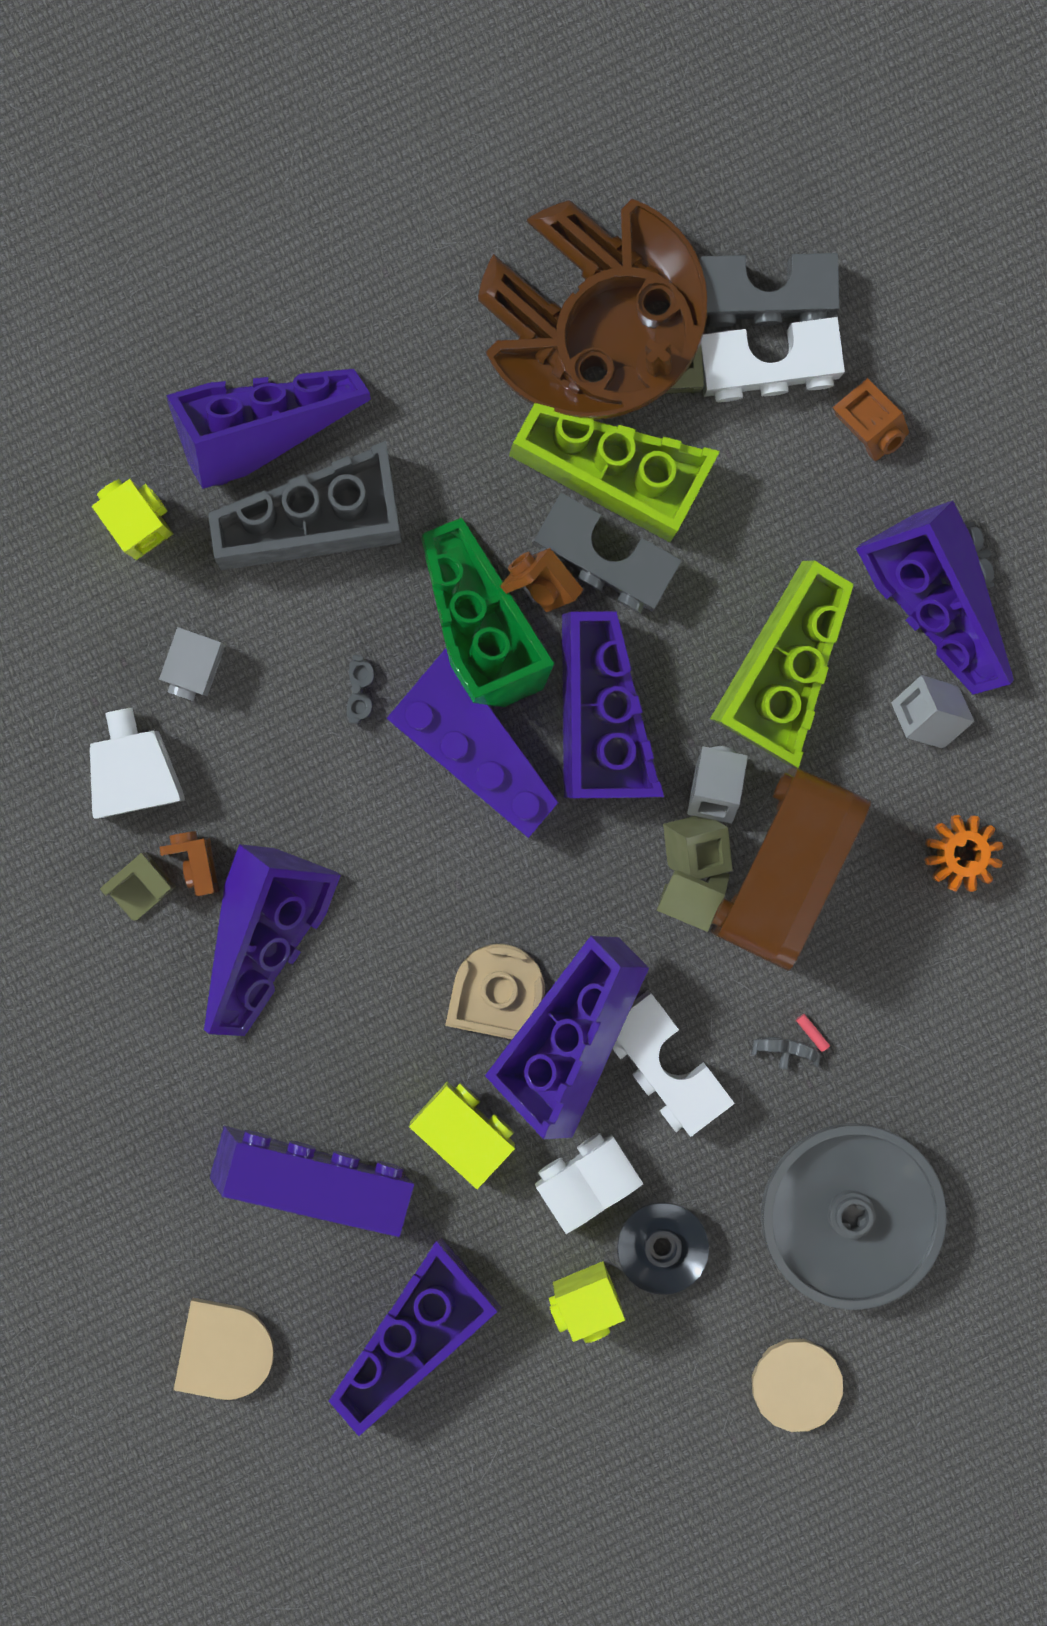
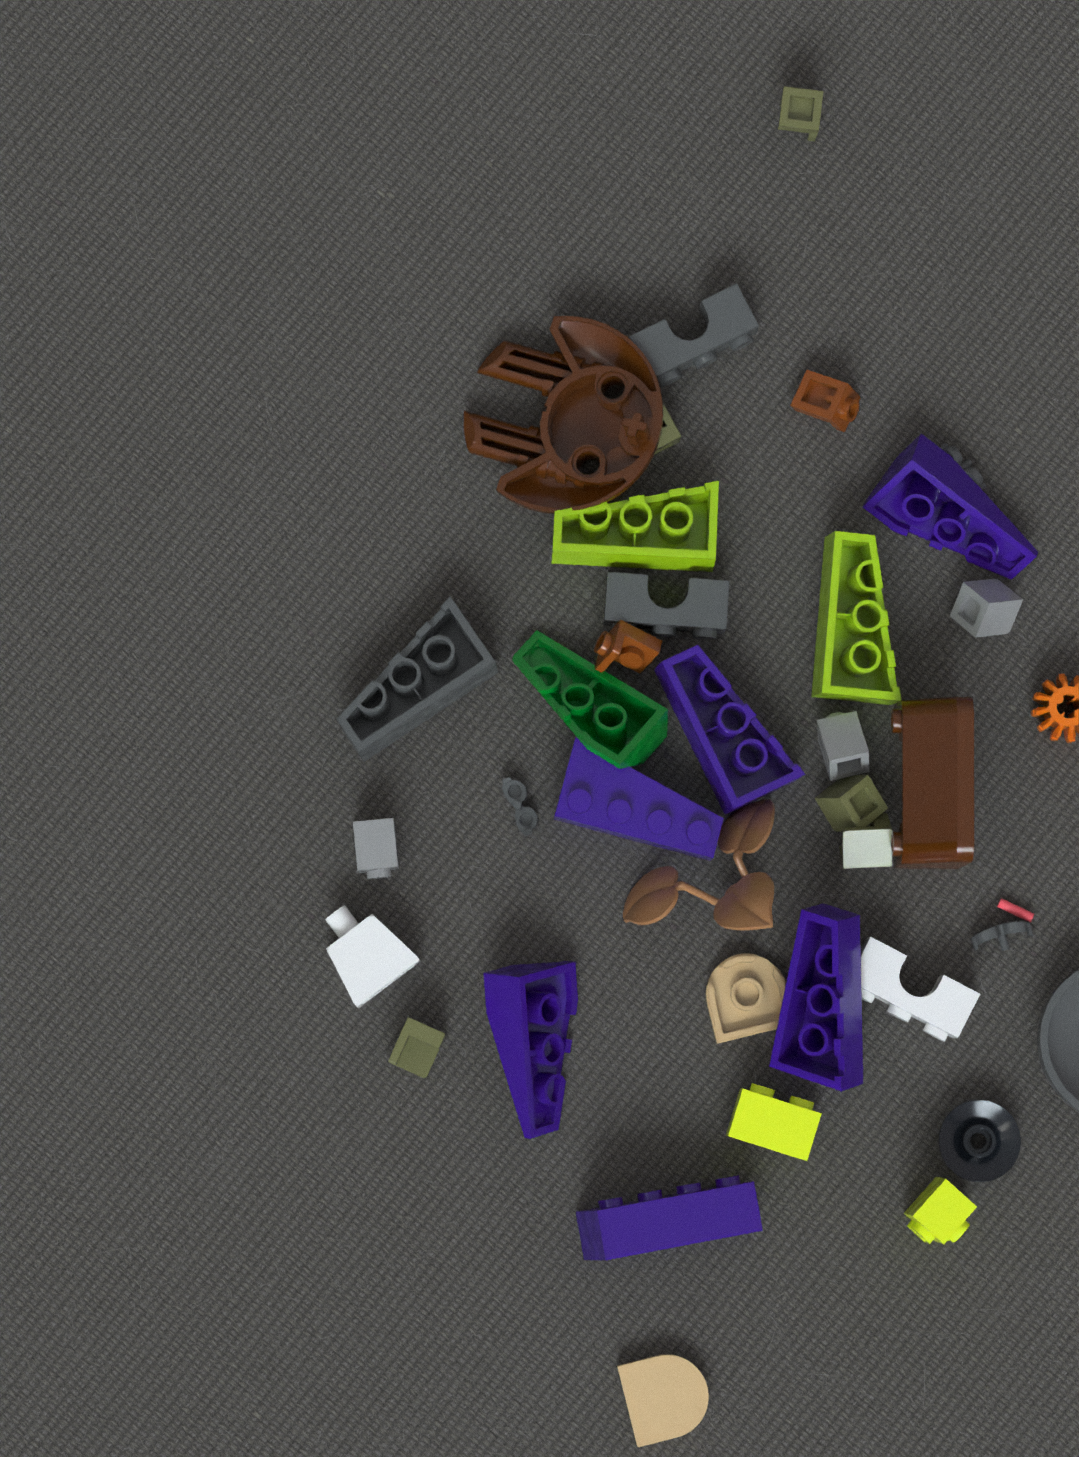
camera: 30 degrees left, 5 degrees down
(132, 516) = (276, 750): neon yellow brick -> none
(200, 868) = (459, 1008): dark orange bracket -> none
(246, 427) = (331, 639): dark purple wedge -> none
(424, 1326) = (815, 1302): dark purple wedge -> none
(540, 899) = (745, 903): none -> medium nougat plant
(587, 1182) = (893, 1115): white brick -> none
(812, 359) = (755, 375): white arch -> none
(992, 102) = (800, 111): none -> olive panel

